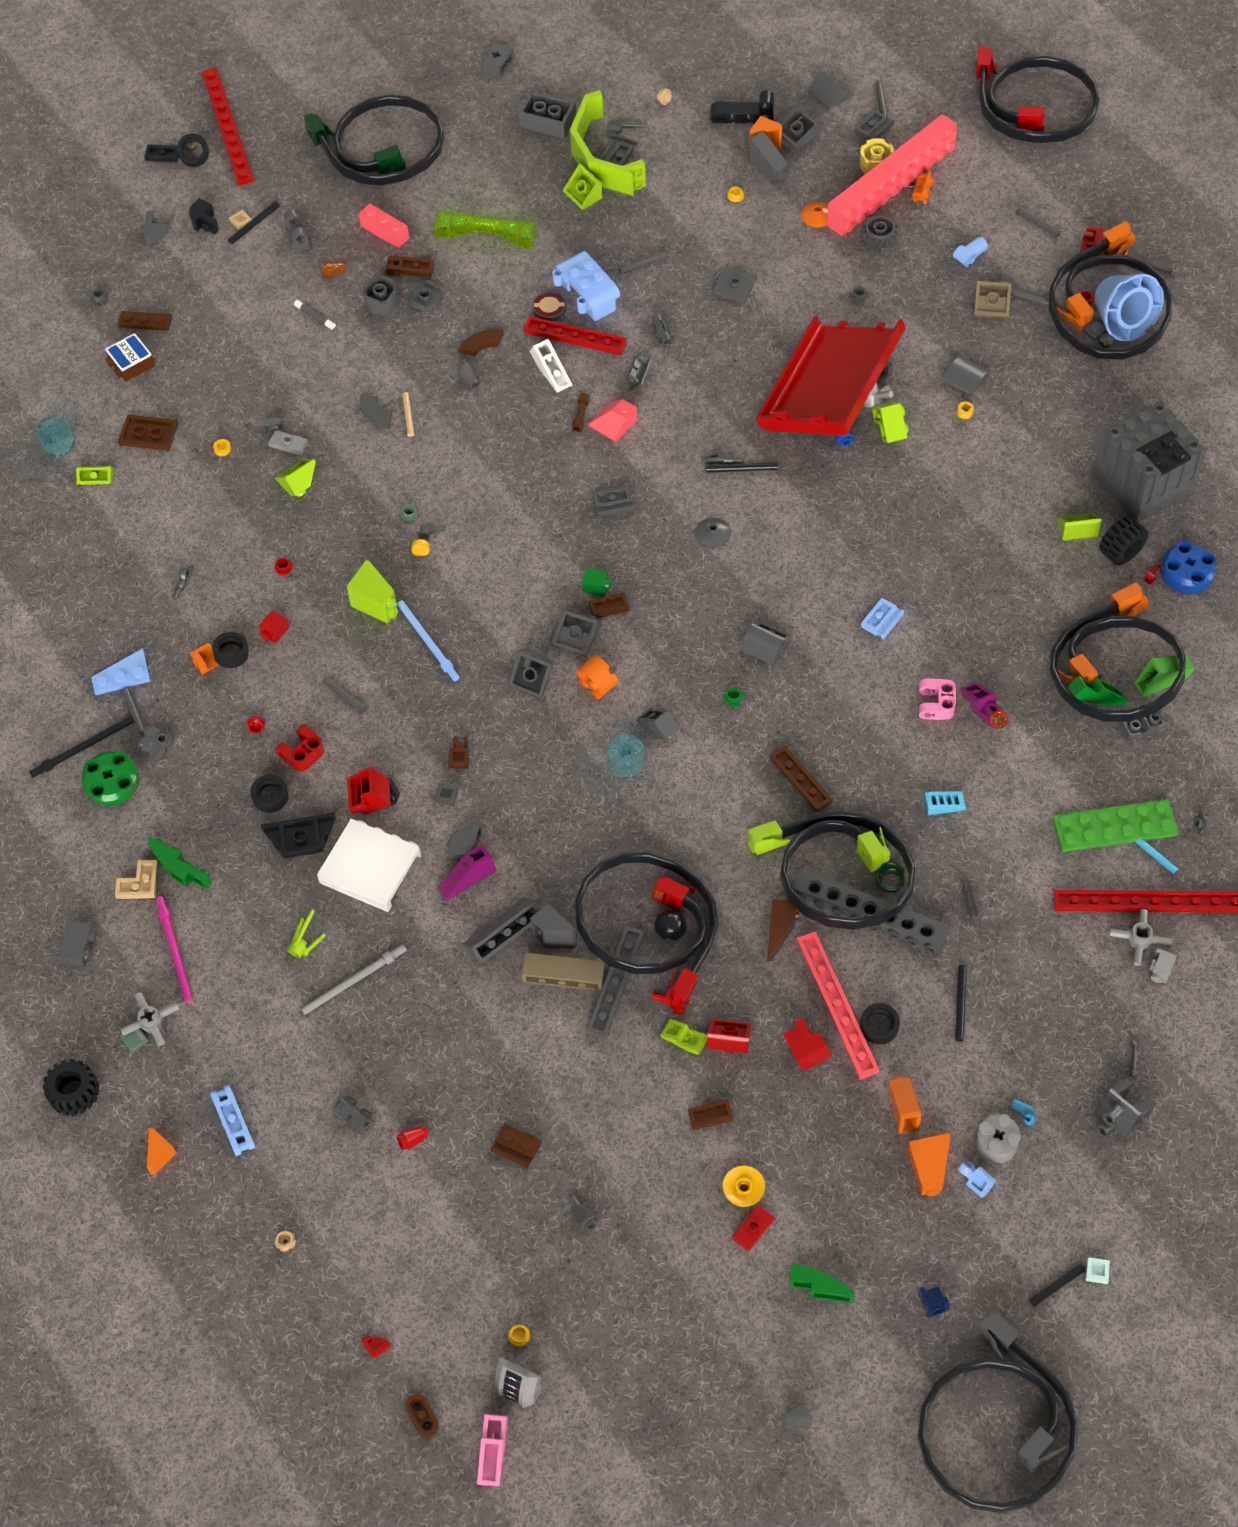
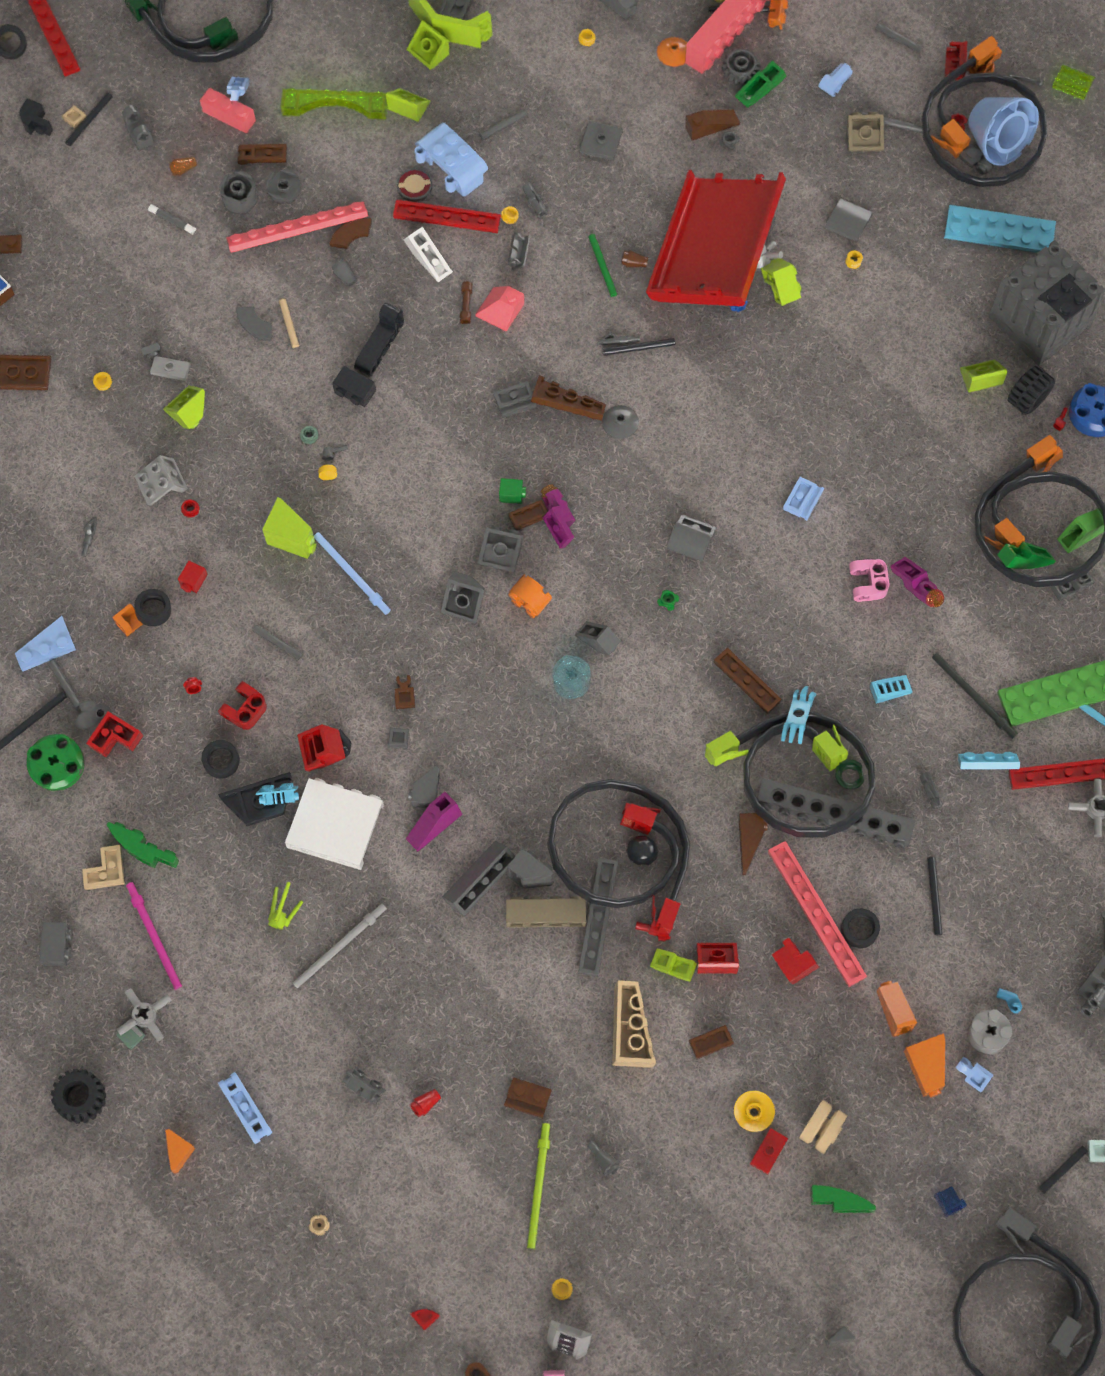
camera: 10 degrees left, 10 degrees up
(170, 755) = (113, 730): none -> red brick
(258, 535) = (160, 478): none -> light grey bracket
(310, 826) = (268, 790): none -> medium azure hinge
(396, 206) = (237, 86): none -> light blue hinge
(436, 330) = (297, 226): none -> coral plate
(459, 474) = (354, 386): none -> black brick
(491, 437) = (391, 320): none -> black beam
(524, 1194) = (543, 1145): none -> lime bar
(553, 236) = (406, 104): none -> lime slope
(629, 1096) = (630, 1031): none -> tan wedge
(635, 340) = (509, 215): none -> yellow plate
(637, 609) = (559, 515): none -> magenta plate
(665, 507) = (567, 400): none -> reddish brown wing
(718, 392) = (602, 264): none -> green bar
(748, 389) = (633, 259): none -> reddish brown cone
(811, 1207) = (826, 1128): none -> tan wheel
(839, 819) = (798, 722): none -> medium azure piece
(840, 277) = (710, 122): none -> reddish brown slope
(897, 249) = (761, 84): none -> green slope
(1034, 879) = (988, 761): none -> medium azure plate
(1051, 845) = (1001, 722): none -> pearl dark grey bar
(1107, 395) = (999, 229): none -> medium azure plate
(1204, 274) = (1073, 82): none -> clear neon green plate

